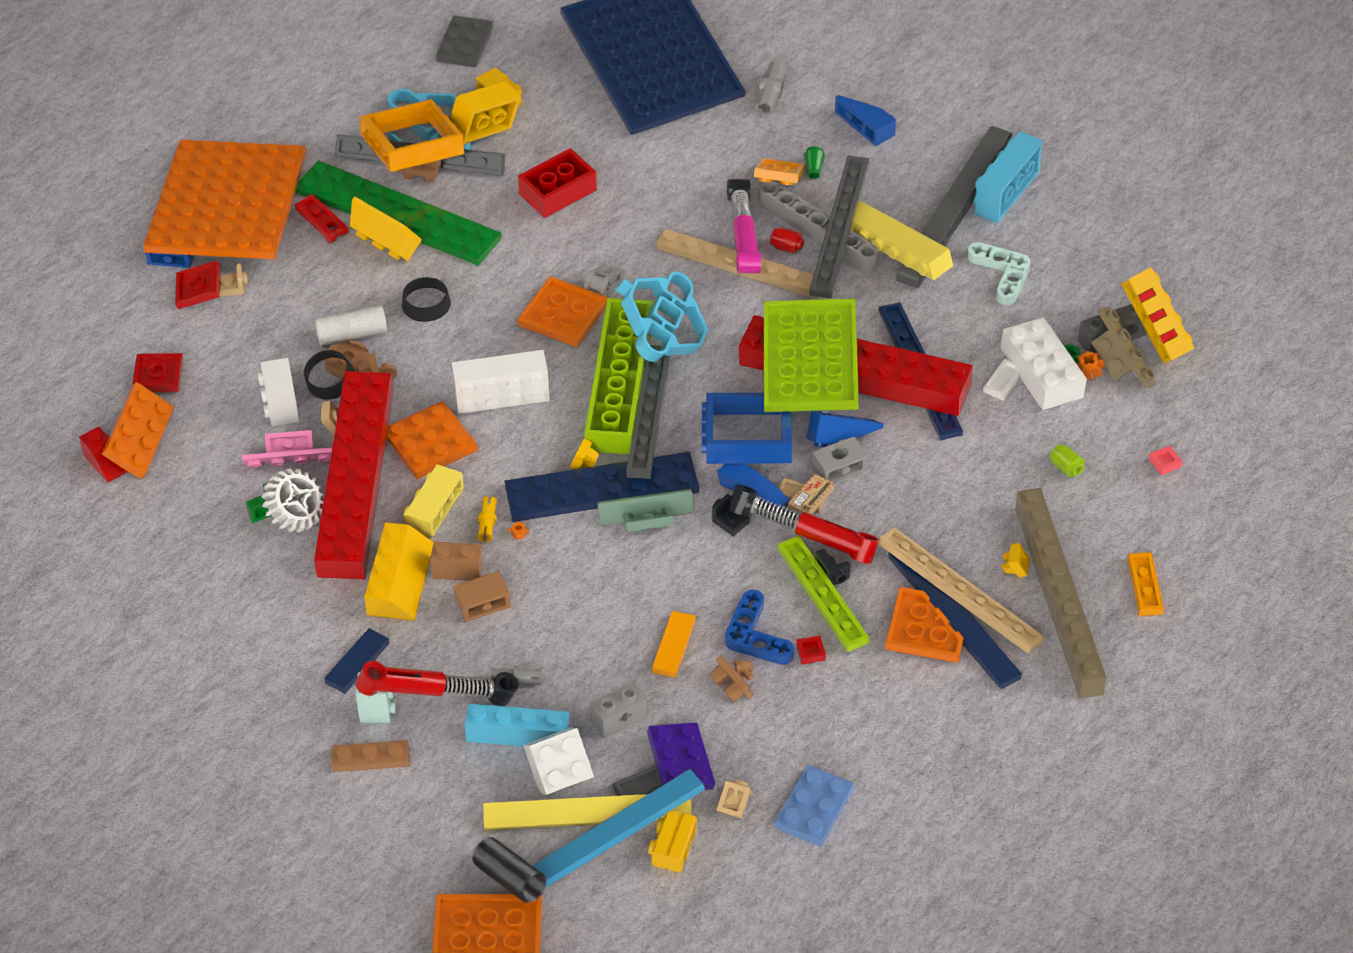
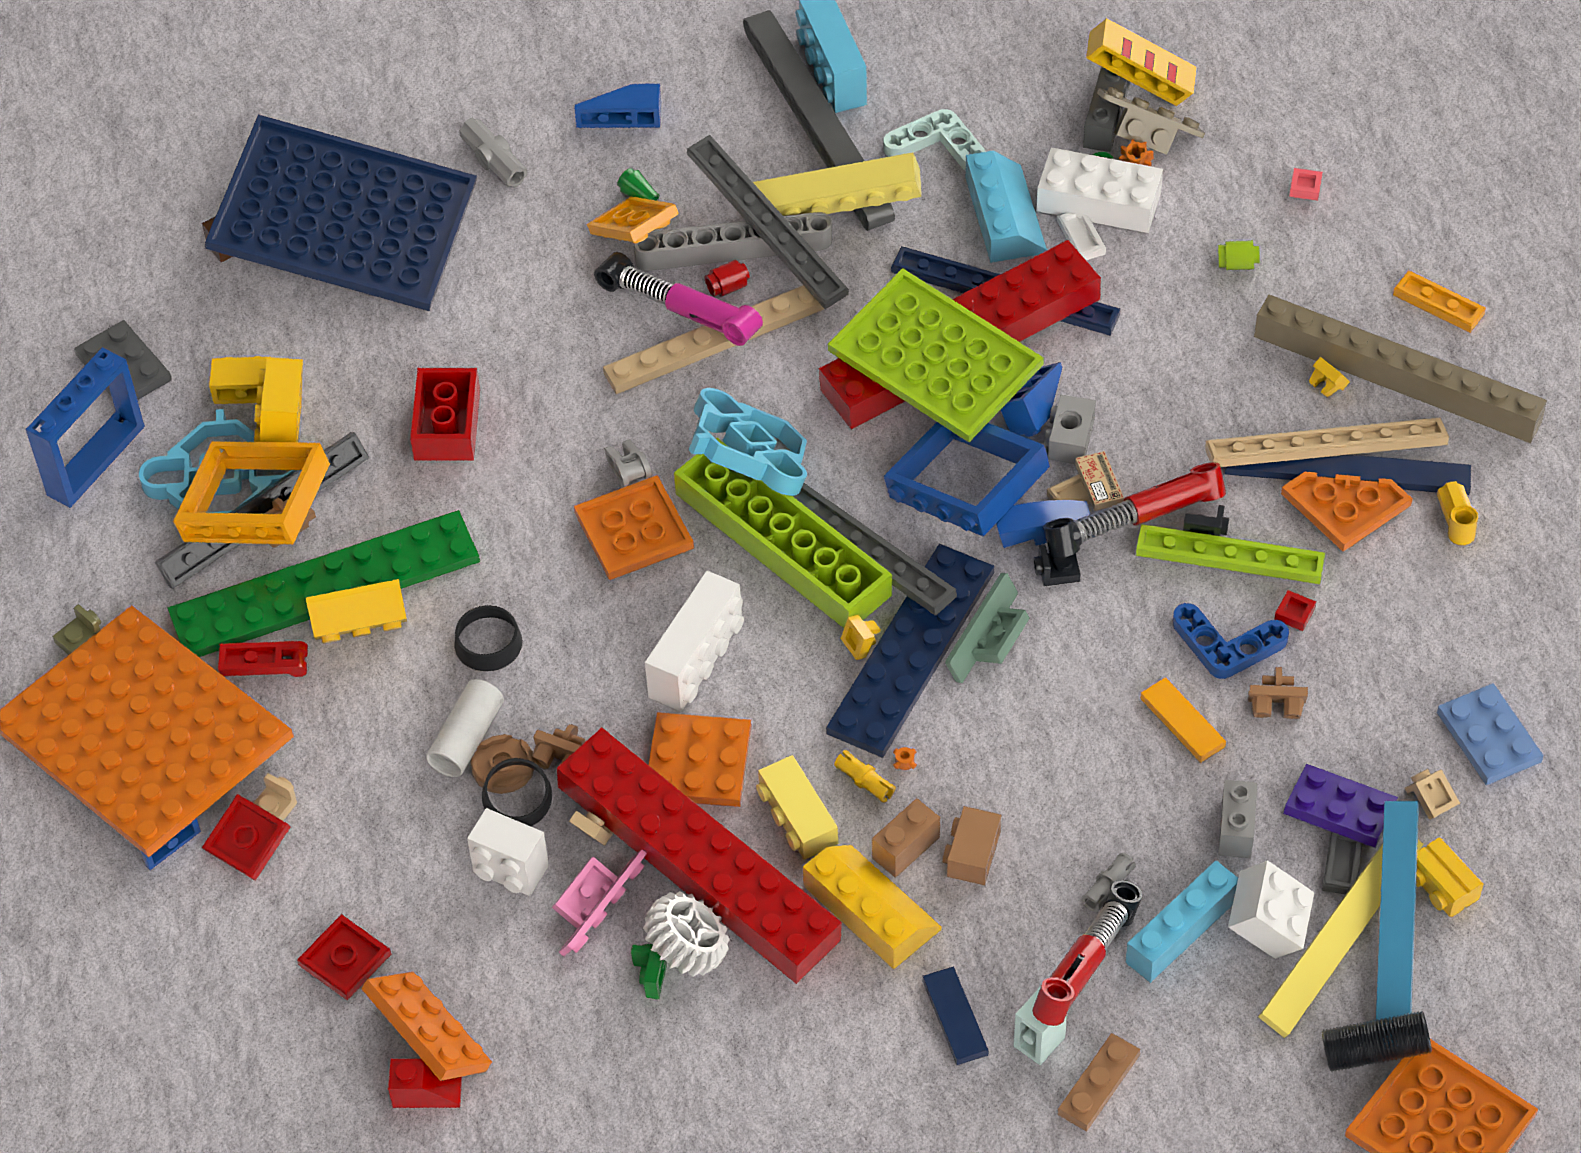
camera: 50 degrees left, 5 degrees up
(270, 136) = (78, 630): none -> olive bracket
(388, 70) = (71, 481): none -> blue window
(971, 689) = (1458, 512): none -> yellow piece
(979, 327) = (1003, 207): none -> medium azure slope

